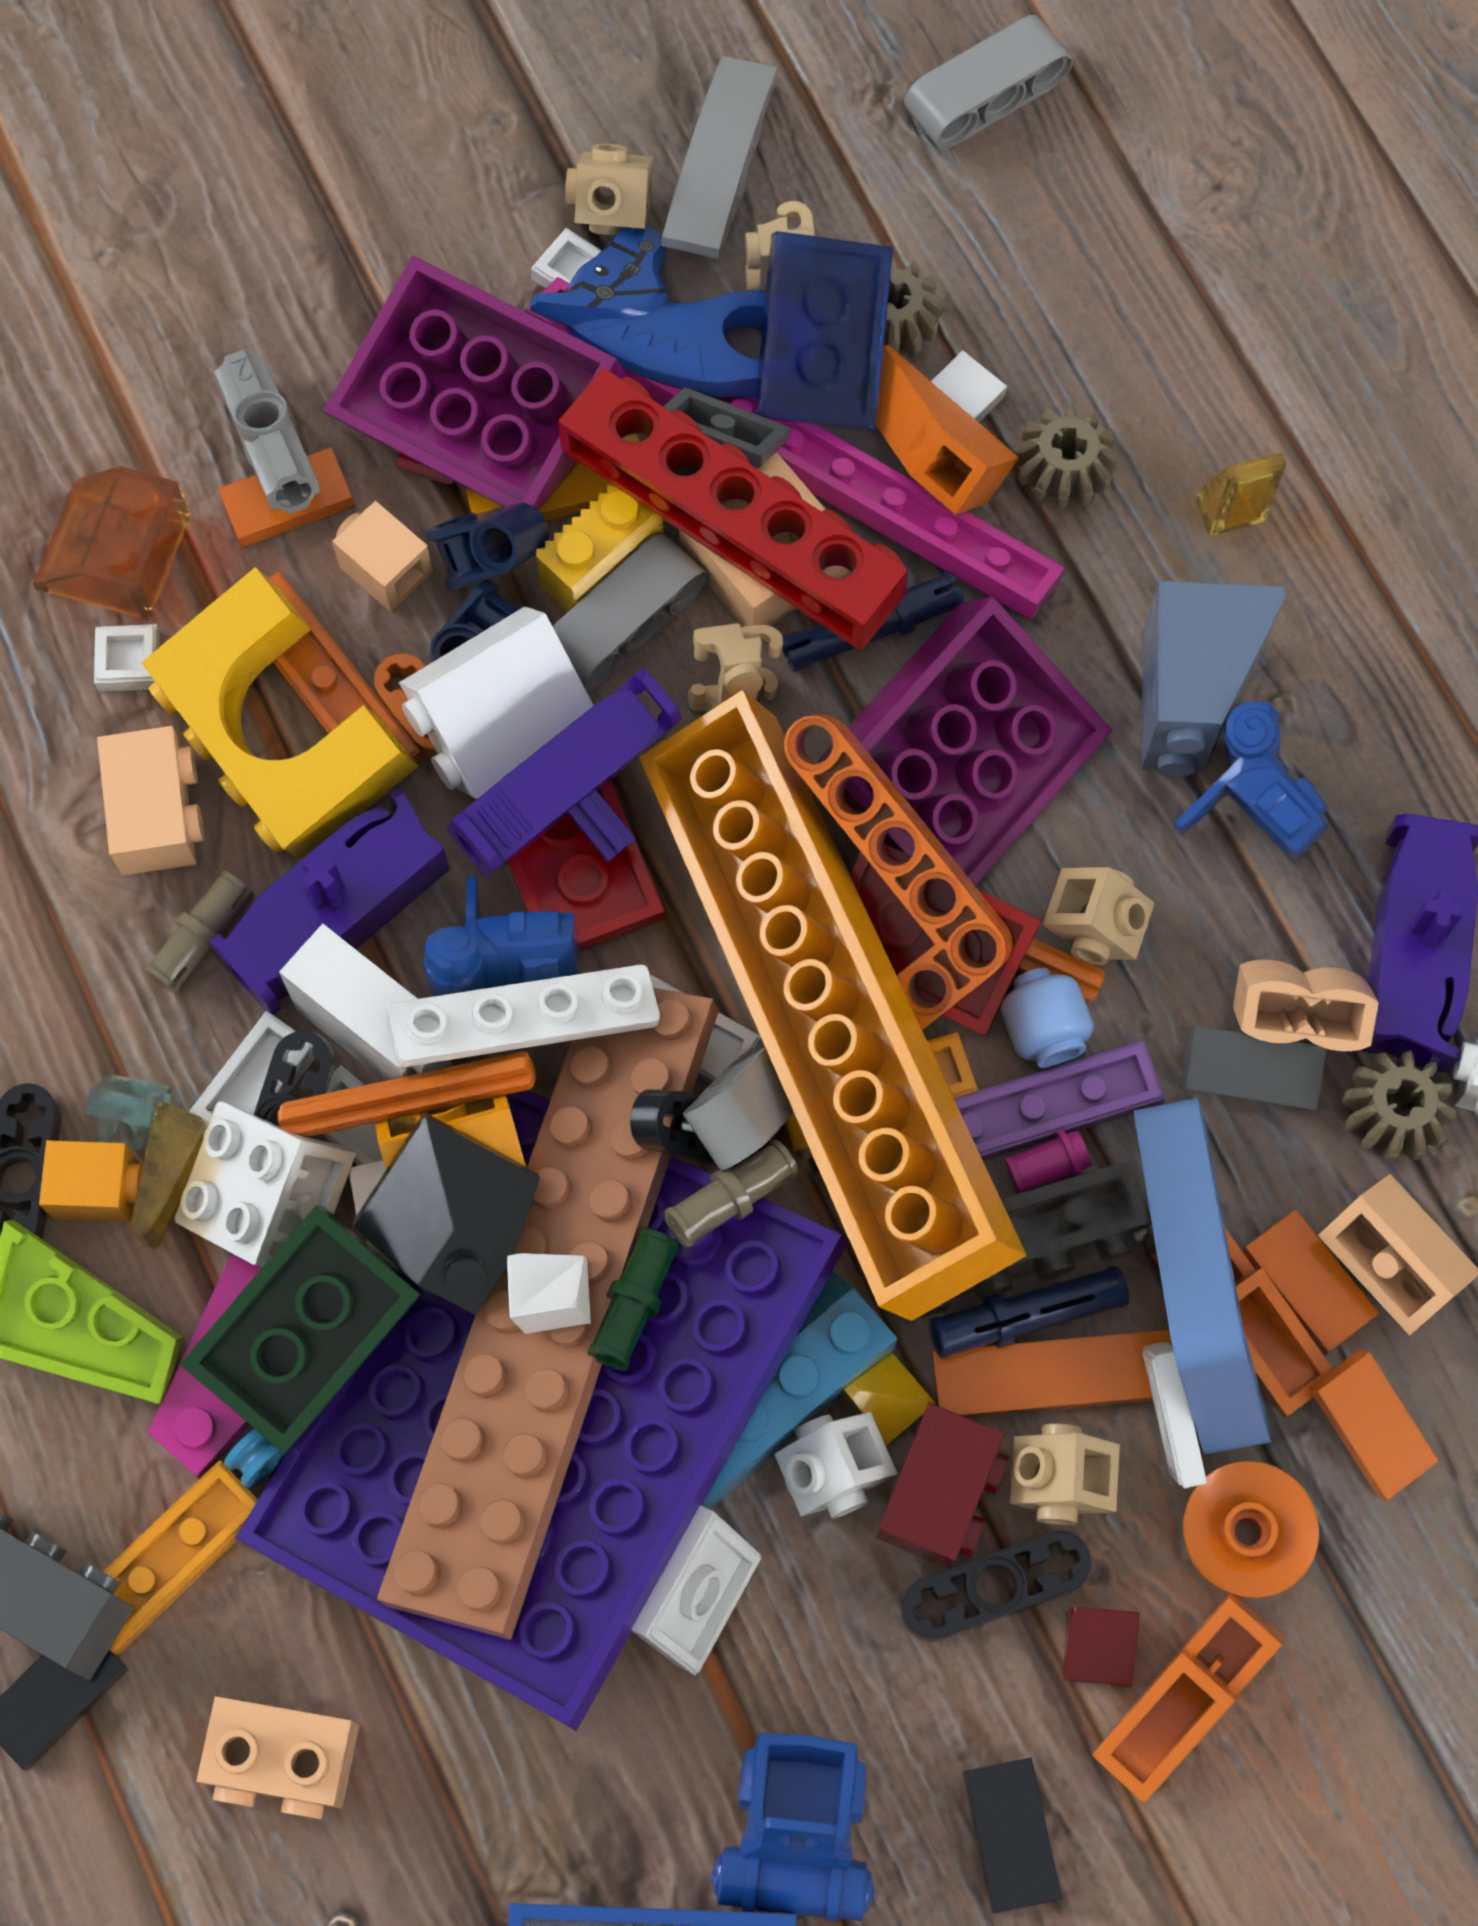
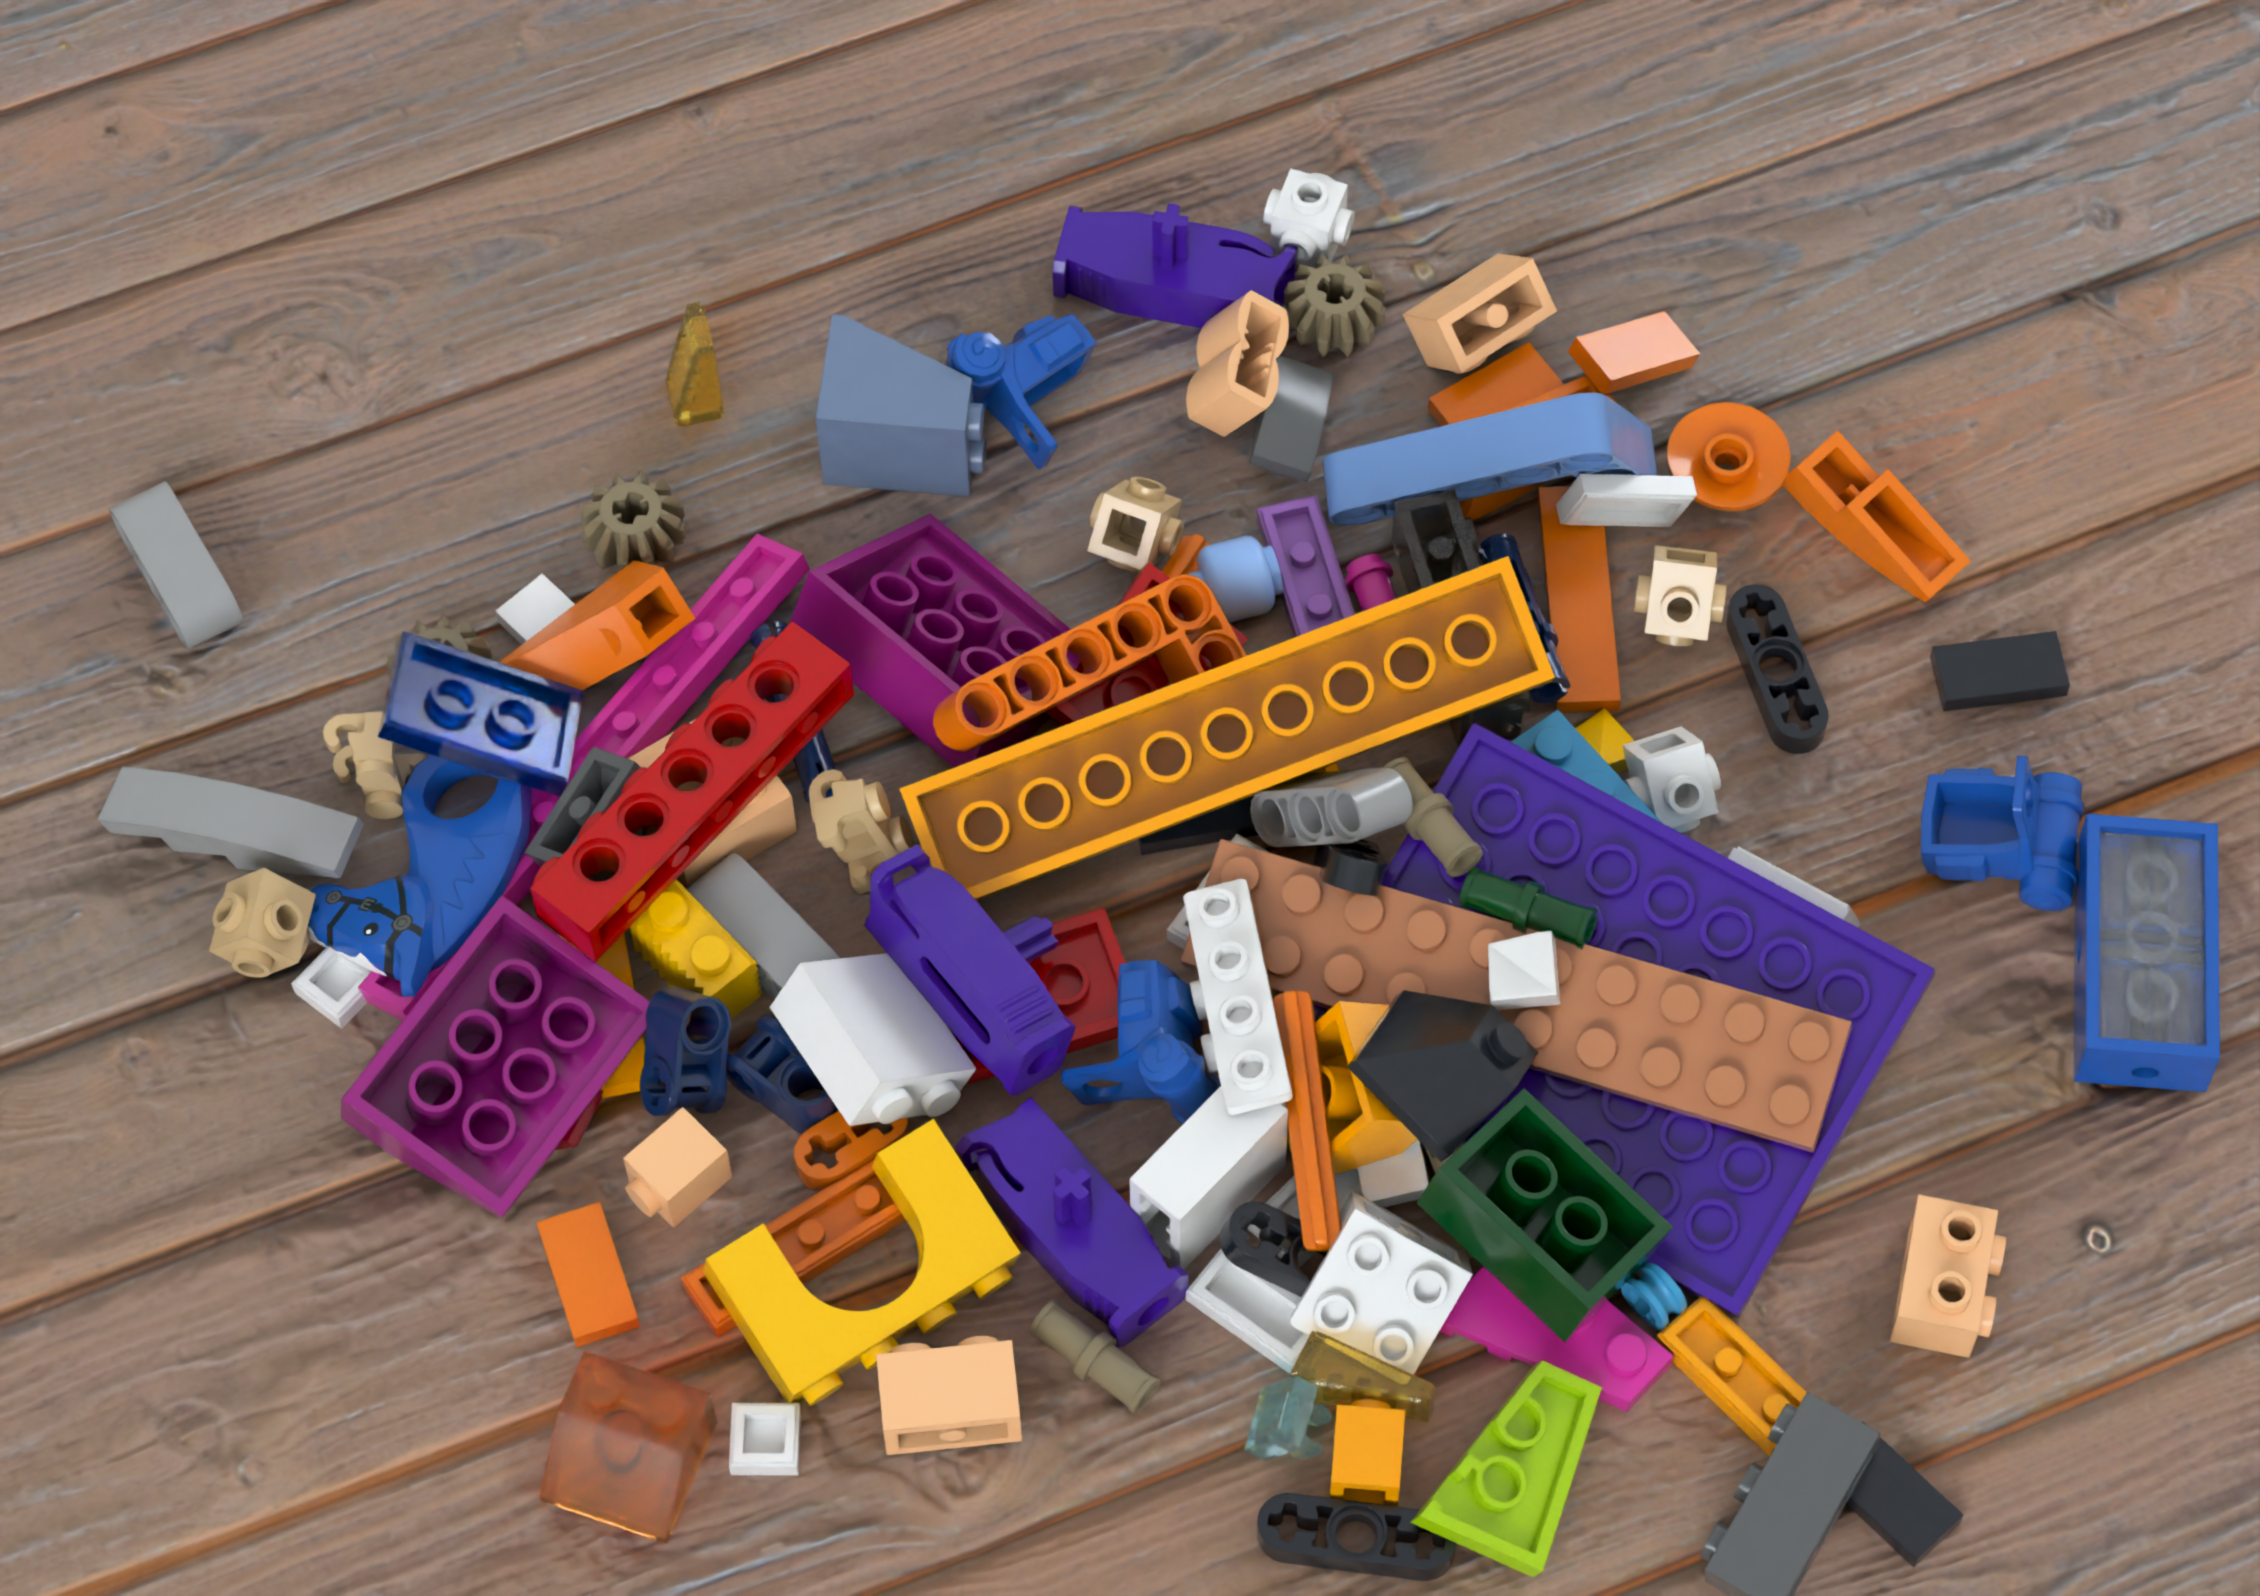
camera: 85 degrees left, 10 degrees down
(266, 432) = (484, 1287): light grey piece -> none
(942, 1486) = (1692, 688): dark red brick -> none
(1100, 1646) = (1830, 588): dark red slope -> none

